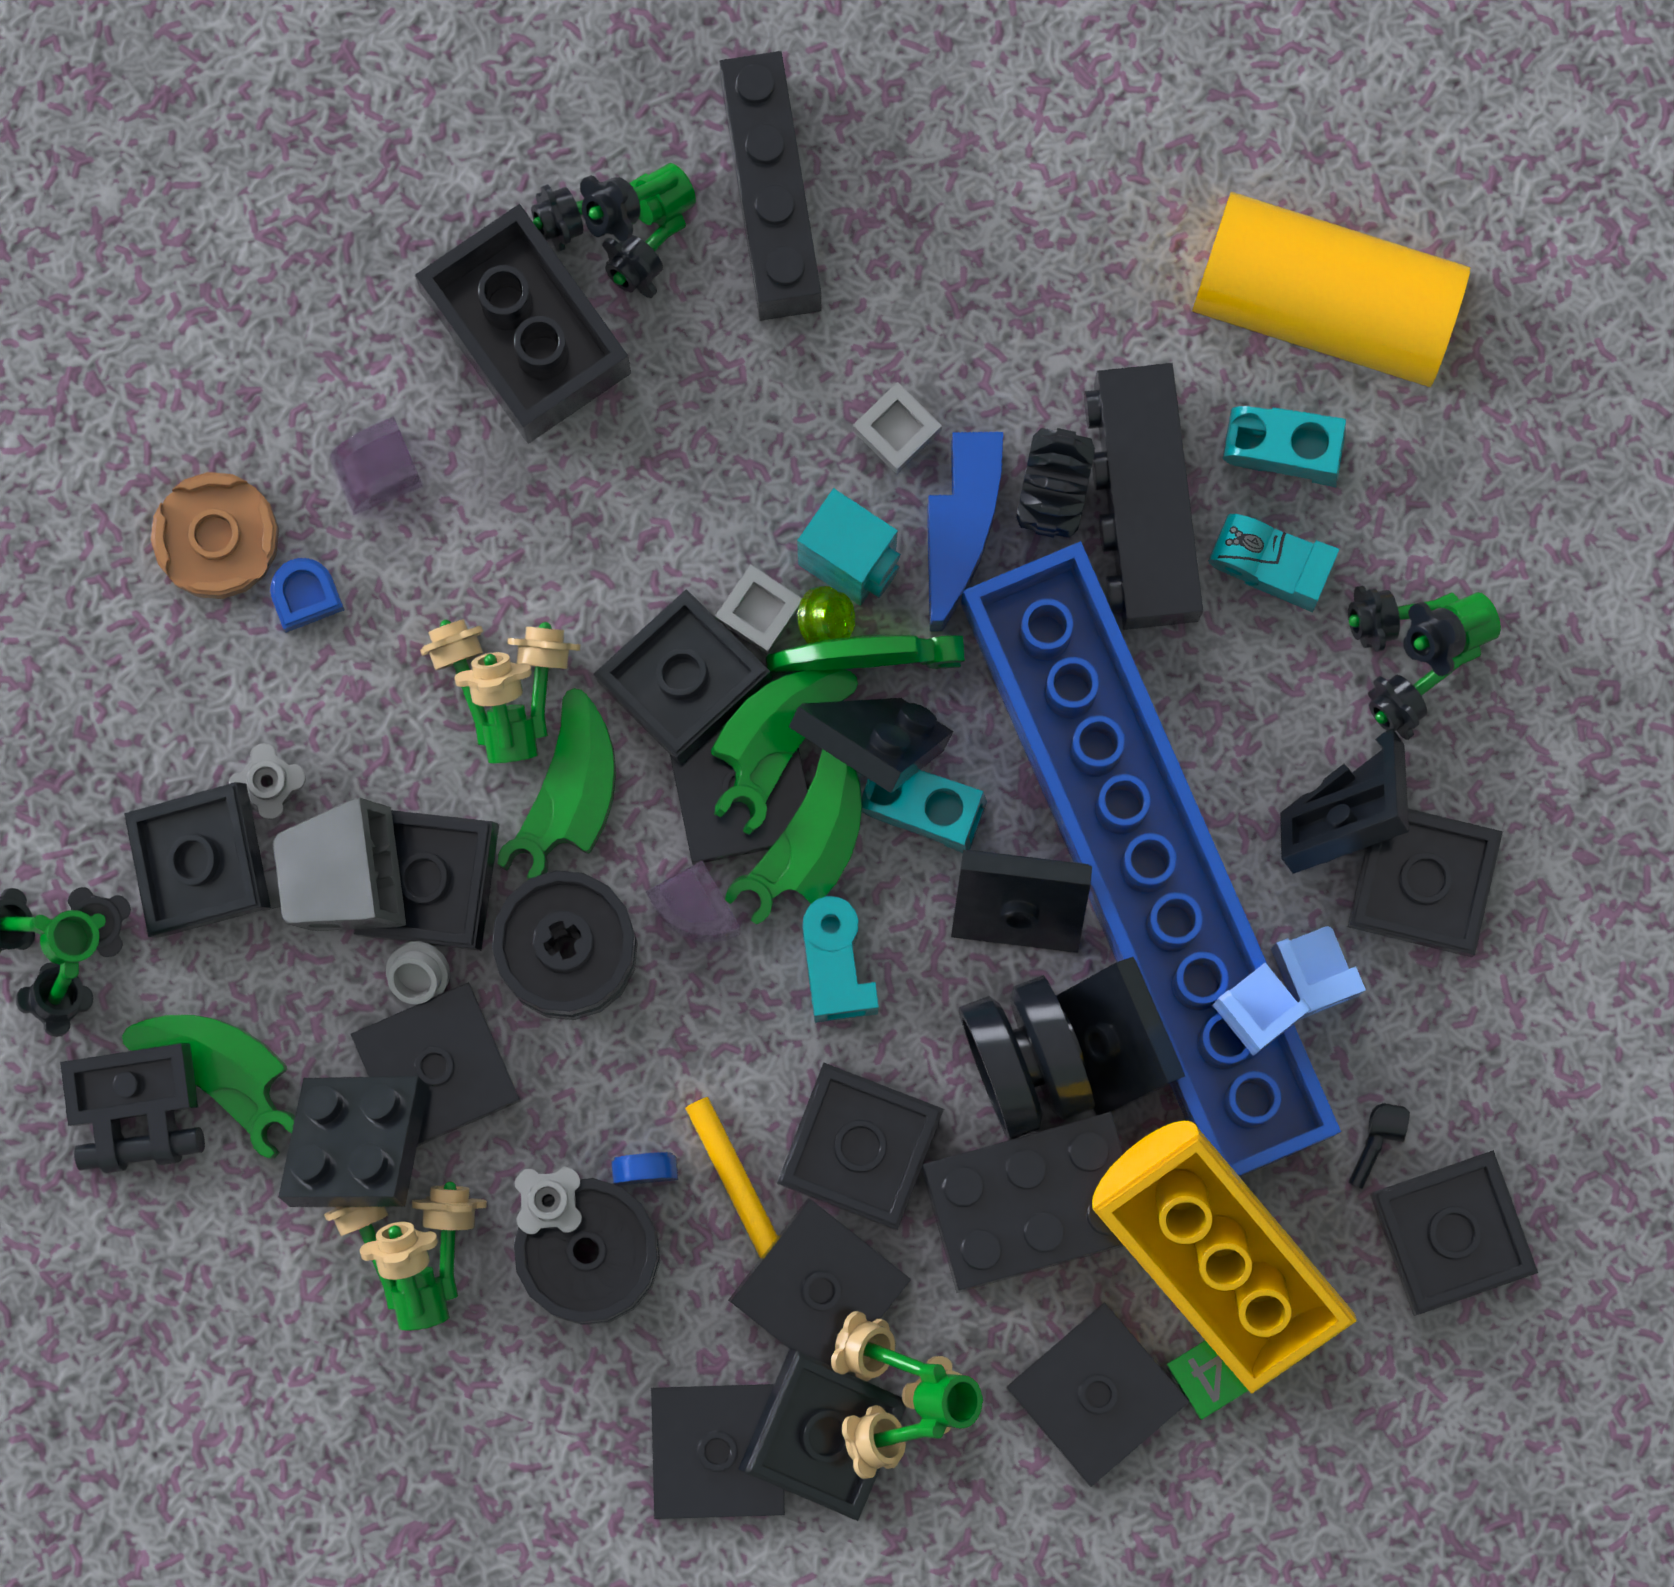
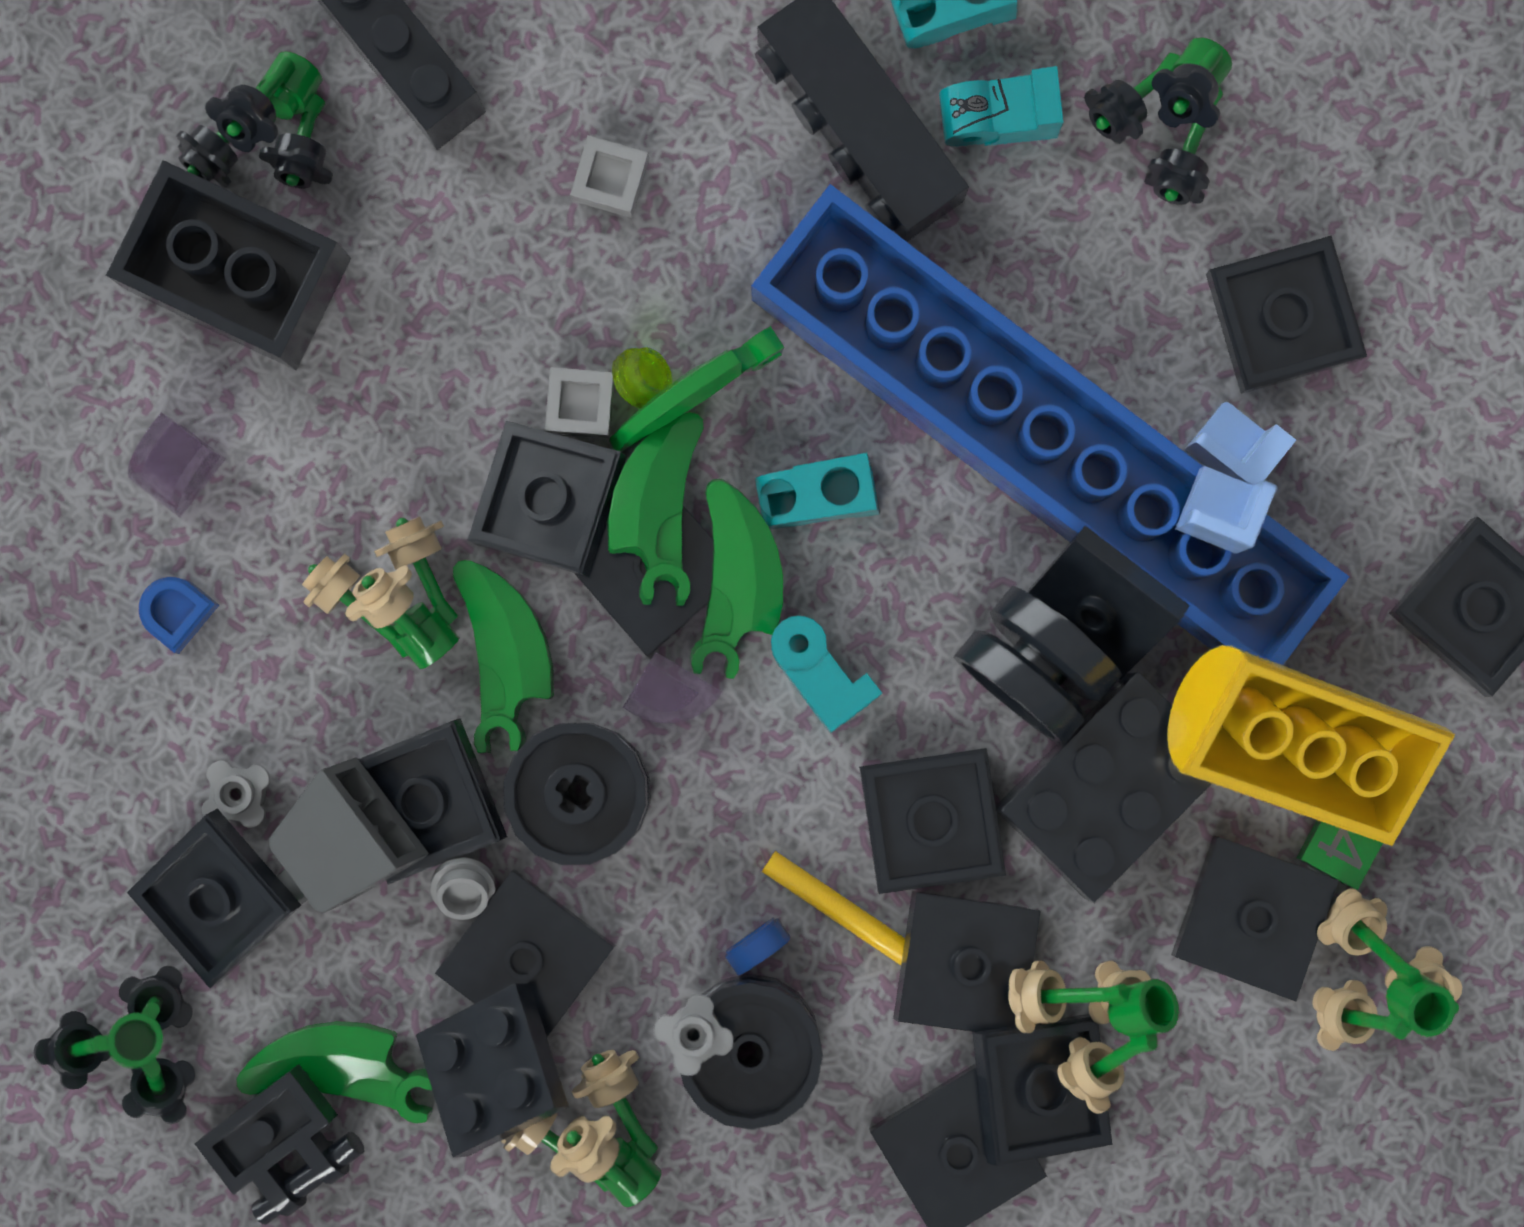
camera: 25 degrees left, 5 degrees up
(227, 555) = (91, 605): medium nougat tile -> none
(849, 548) = (629, 304): teal brick -> none
(875, 737) = (746, 458): black wing -> none
(961, 521) = (712, 225): blue slope -> none
(1021, 900) = (954, 529): black plate -> none
(1055, 482) = (776, 146): black gear -> none
(1188, 1530) = (1418, 992): none -> plant
(1348, 809) = (1191, 290): black wing -> none
(1387, 1123) = (1367, 545): black hand -> none

